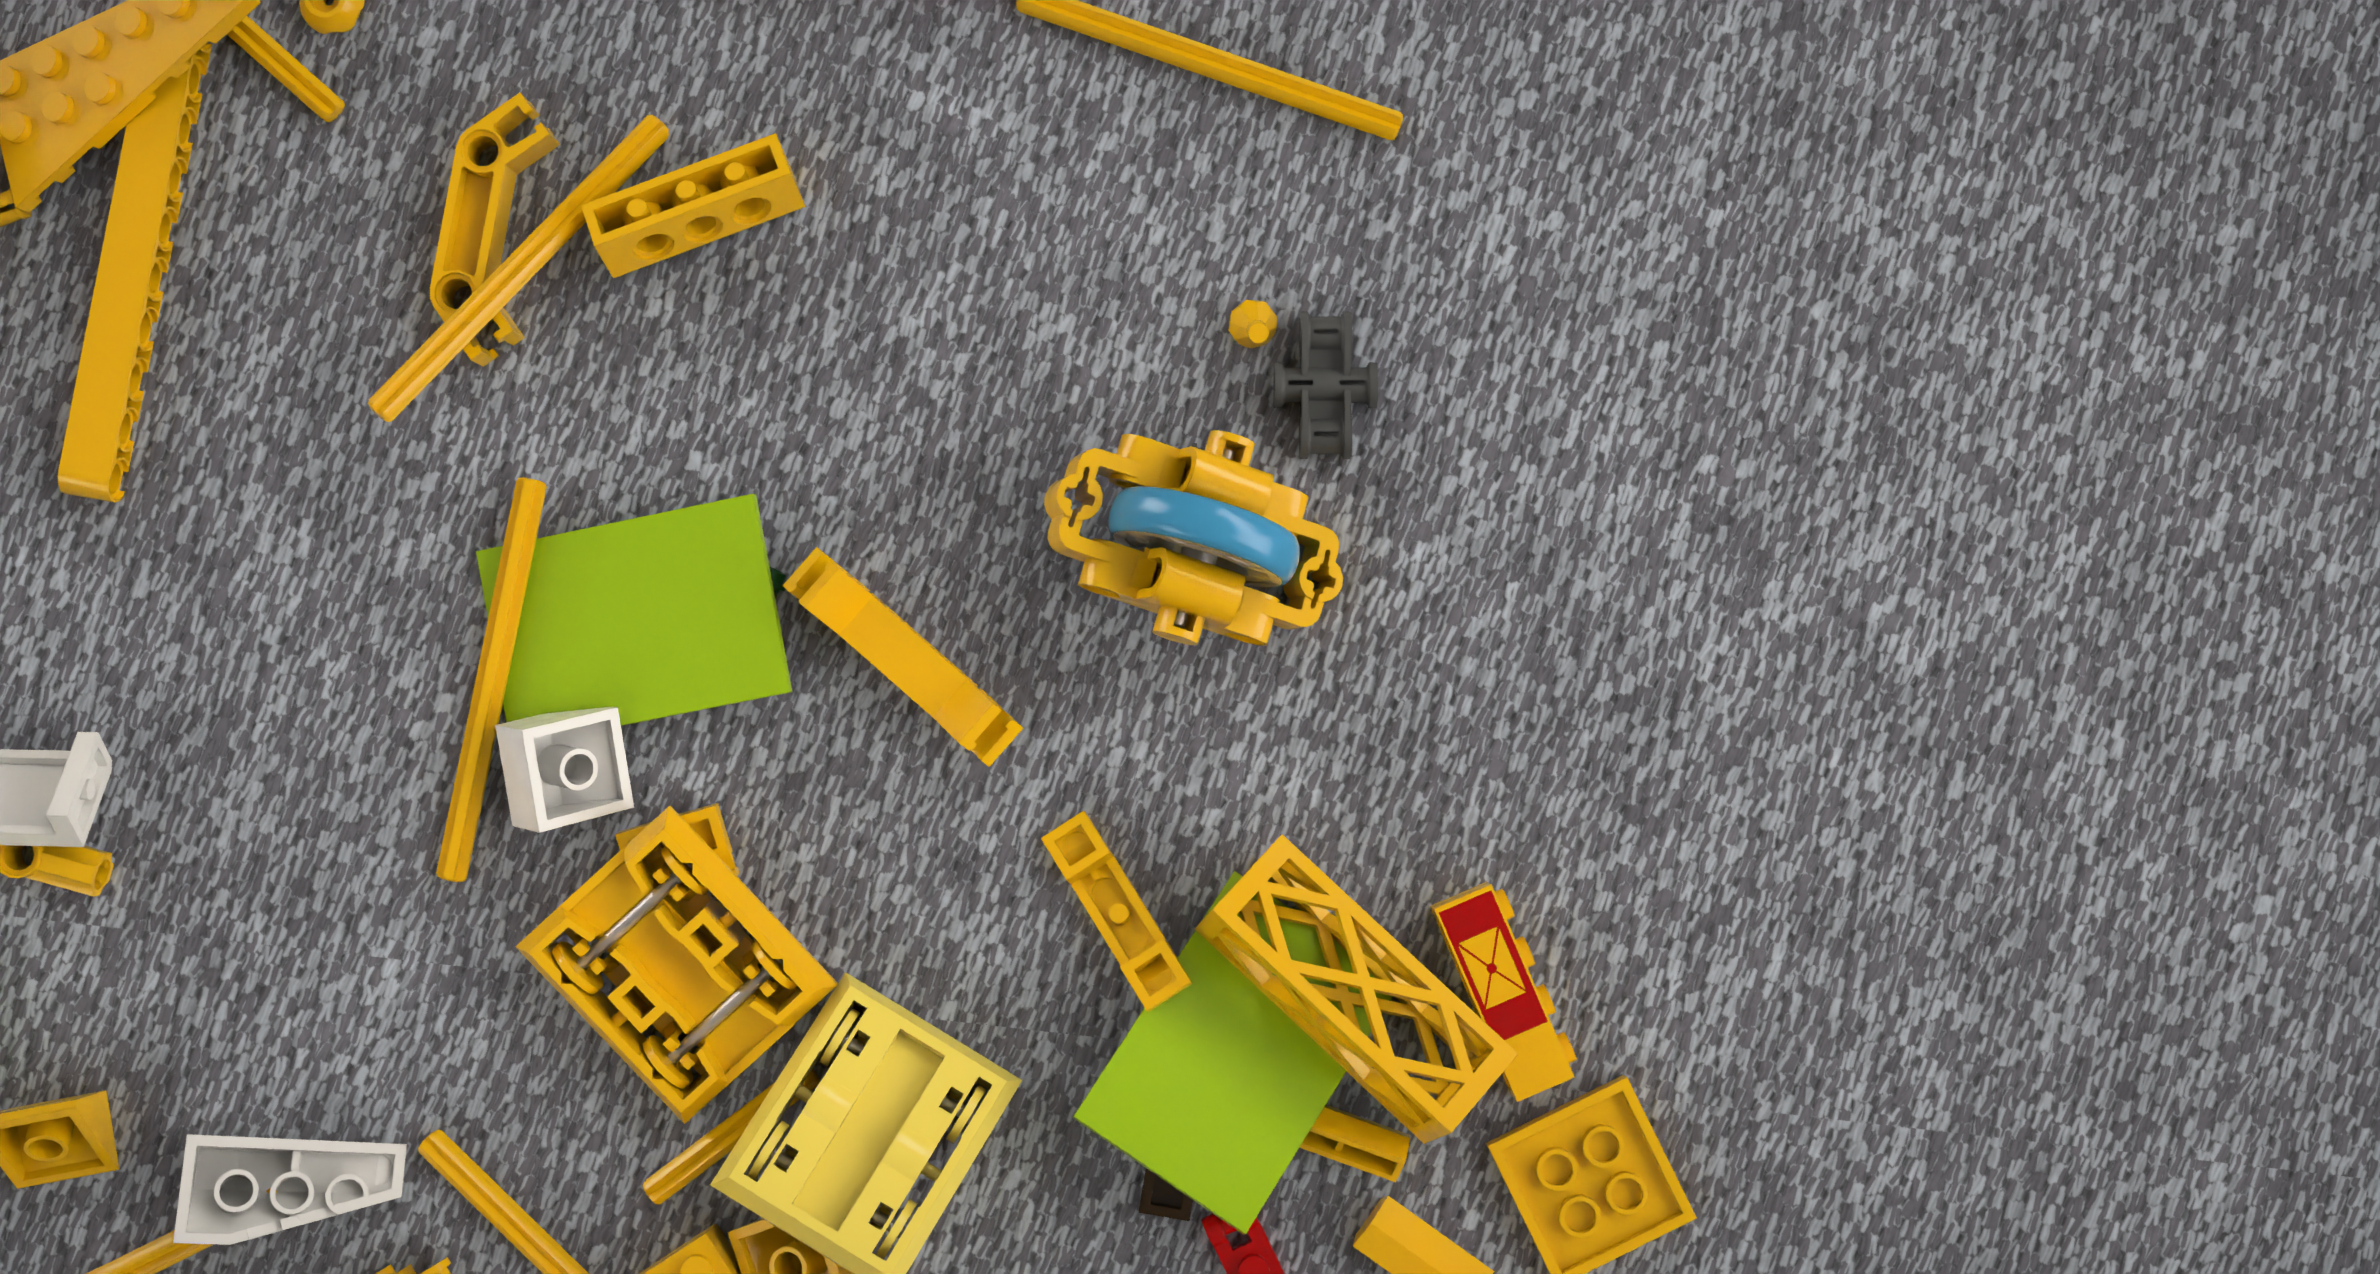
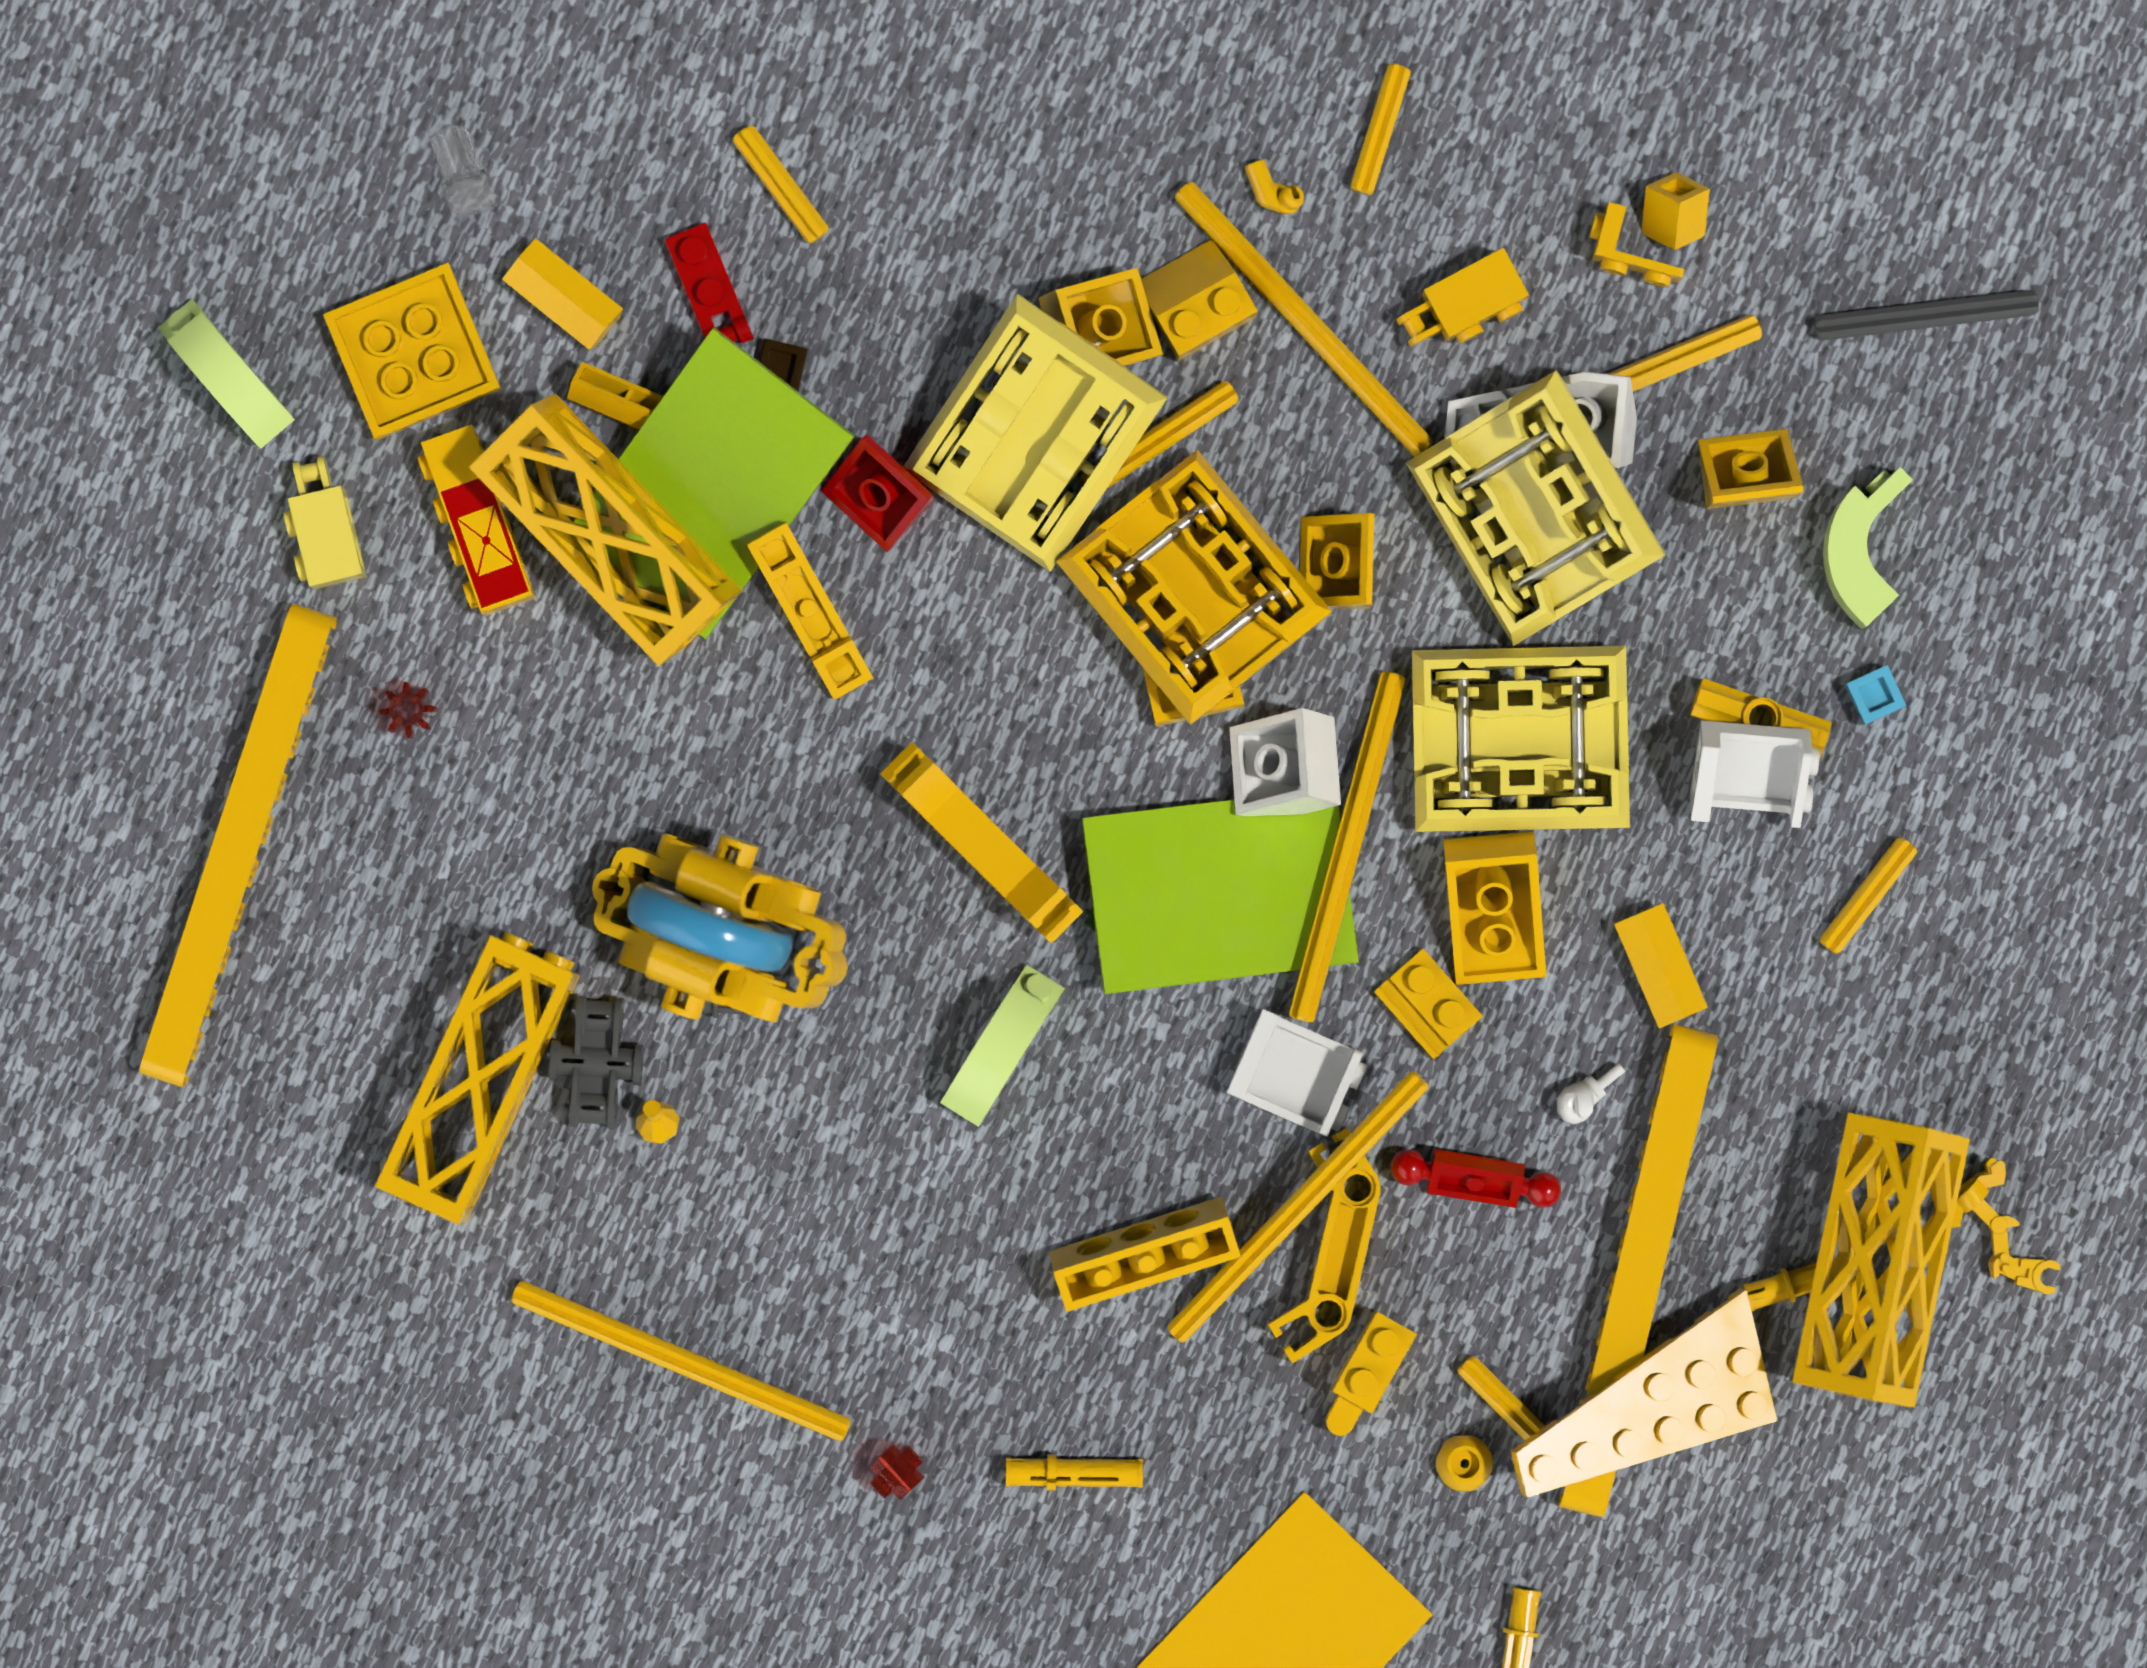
camera: 175 degrees left, 0 degrees up
(129, 567) = (1661, 965): none -> yellow piece
(214, 411) = (1577, 1100): none -> white piece
(283, 1081) = (1536, 507): none -> light yellow piece
(295, 814) = (1520, 739): none -> light yellow piece
(320, 623) = (1495, 907): none -> yellow slope
(329, 315) = (1475, 1178): none -> red plate
(394, 509) = (1428, 1004): none -> yellow plate
(438, 92) = (1367, 1371): none -> yellow brick
(511, 1009) = (1339, 558): none -> yellow slope
(536, 420) = (1296, 1074): none -> white panel
(865, 427) = (1002, 1045): none -> yellowish green arch
(1047, 1051) = (878, 493): none -> red slope
(1500, 220) = (416, 1131): none -> yellow piece
(1575, 778) = (417, 719): none -> clear red gear
(1677, 969) = (323, 529): none -> light yellow brick
(1748, 607) = (236, 844): none -> yellow beam
(1803, 1141) = (225, 374): none -> yellowish green arch

